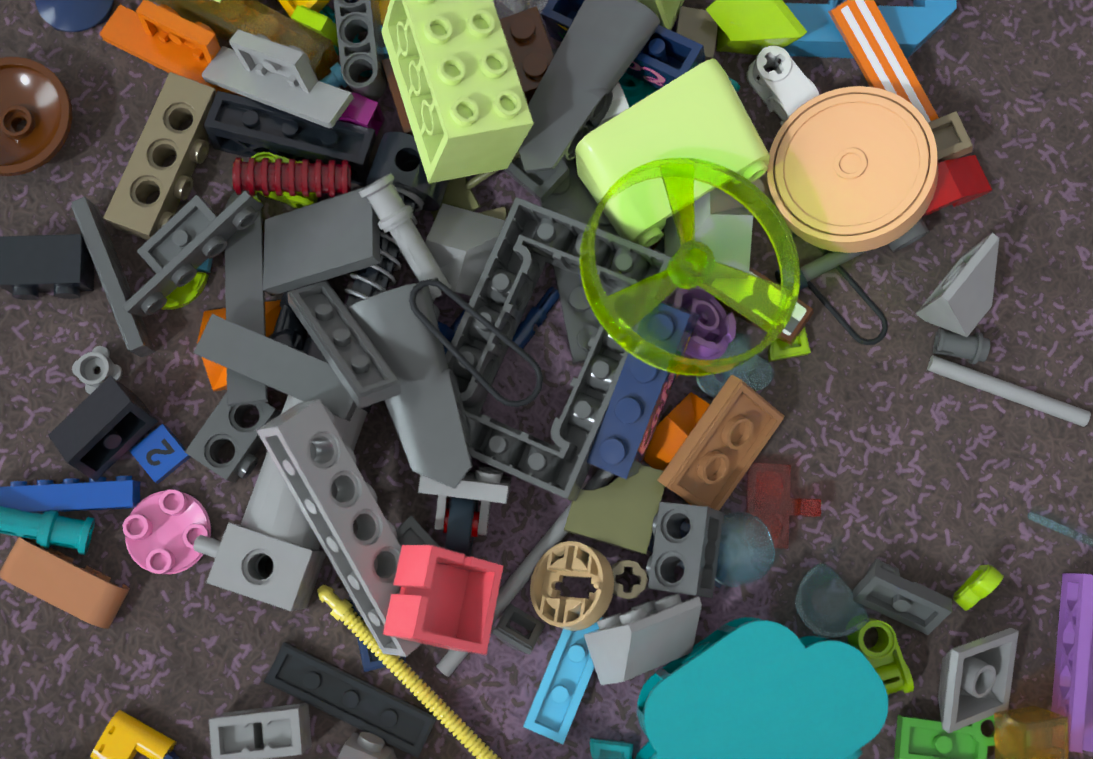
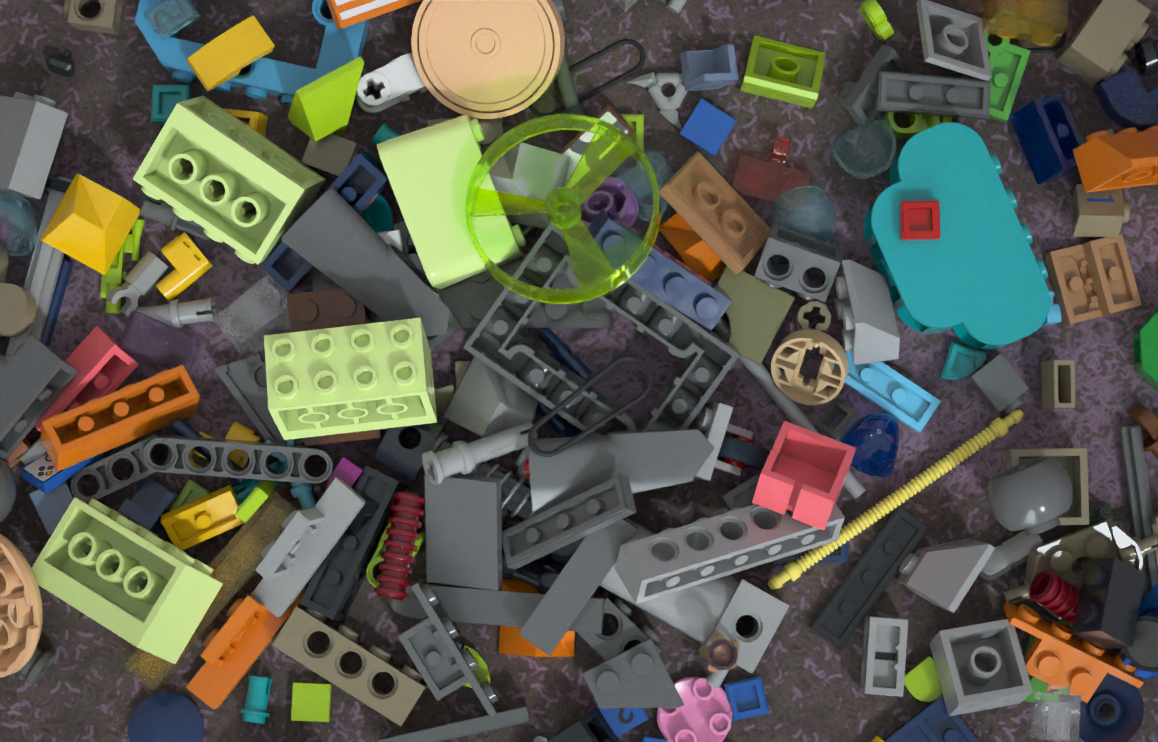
camera: 75 degrees left, 5 degrees up
(116, 75) = (257, 699): none -> teal pin
(122, 129) = (311, 702): none -> lime tile
(186, 454) = (633, 680): none -> dark grey wing
(191, 587) = (746, 698): none -> blue tile
(215, 540) = (720, 653): none -> piece
(500, 676) = (875, 444): none -> clear blue helmet
(765, 678) = (919, 220): none -> red tile
(812, 424) = (707, 127): none -> blue piece
(847, 359) = (666, 104): none -> light grey piece
(876, 412) = (709, 68): none -> sand blue panel
(891, 494) = (783, 72): none -> lime slope
(909, 668) = (932, 95): none -> dark grey tile

